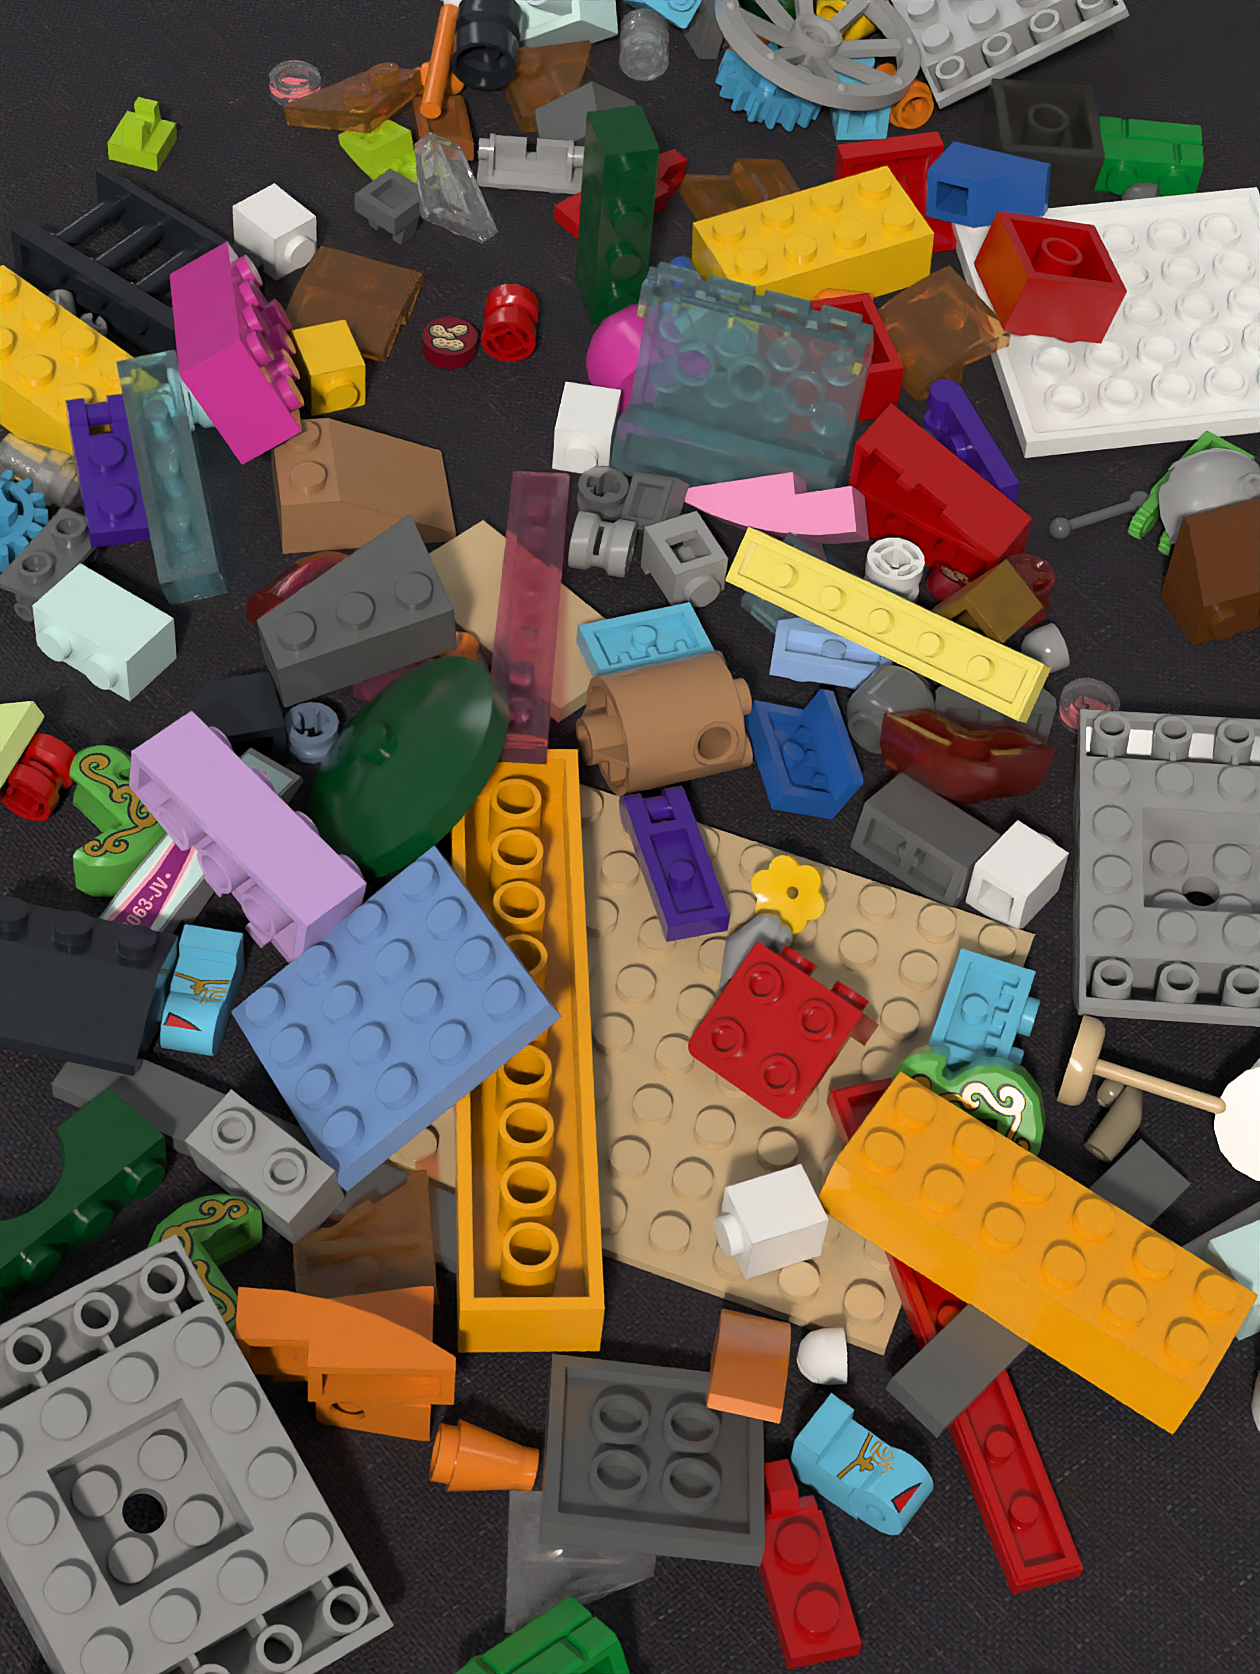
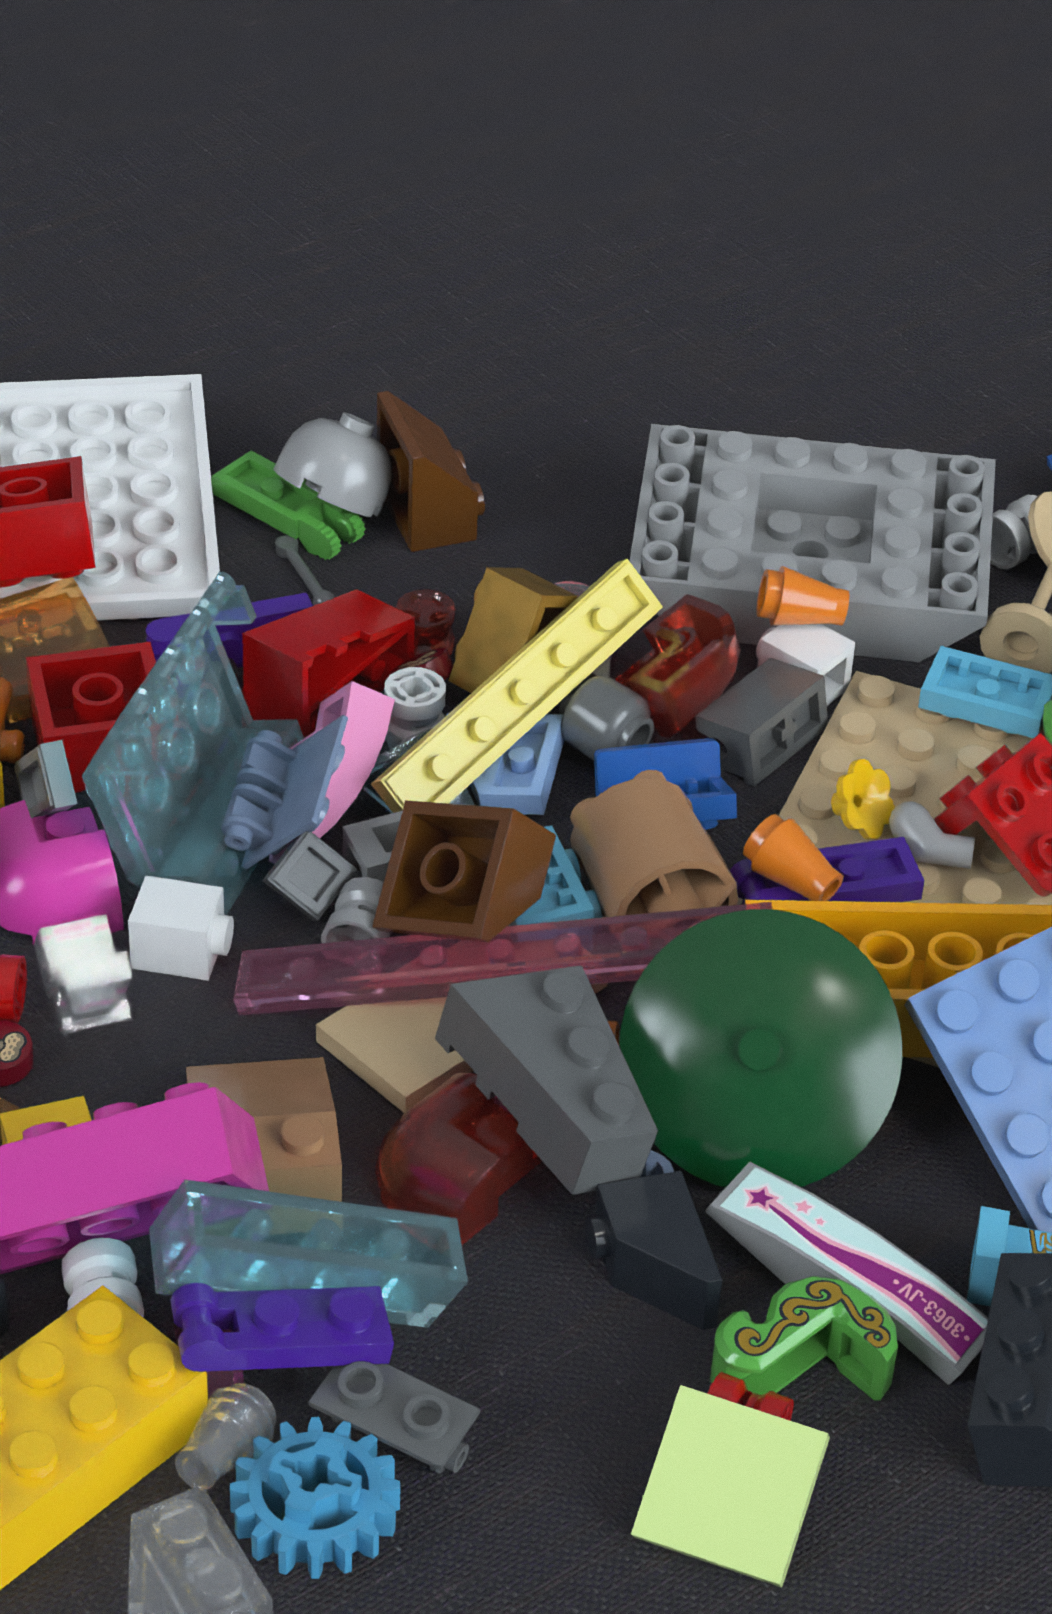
camera: 85 degrees left, 10 degrees down
(104, 632) = (513, 1361): light aqua brick -> none
(245, 836) = (892, 1170): lavender wedge -> none
(519, 377) = (83, 974): none -> clear brick
(604, 480) = (266, 914): dark grey bush -> none
(615, 569) = (462, 871): none -> reddish brown slope
(662, 802) = (791, 859): none -> orange cone
(684, 458) = (281, 791): none -> sand blue hinge
(1059, 833) = (798, 599): none -> orange cone

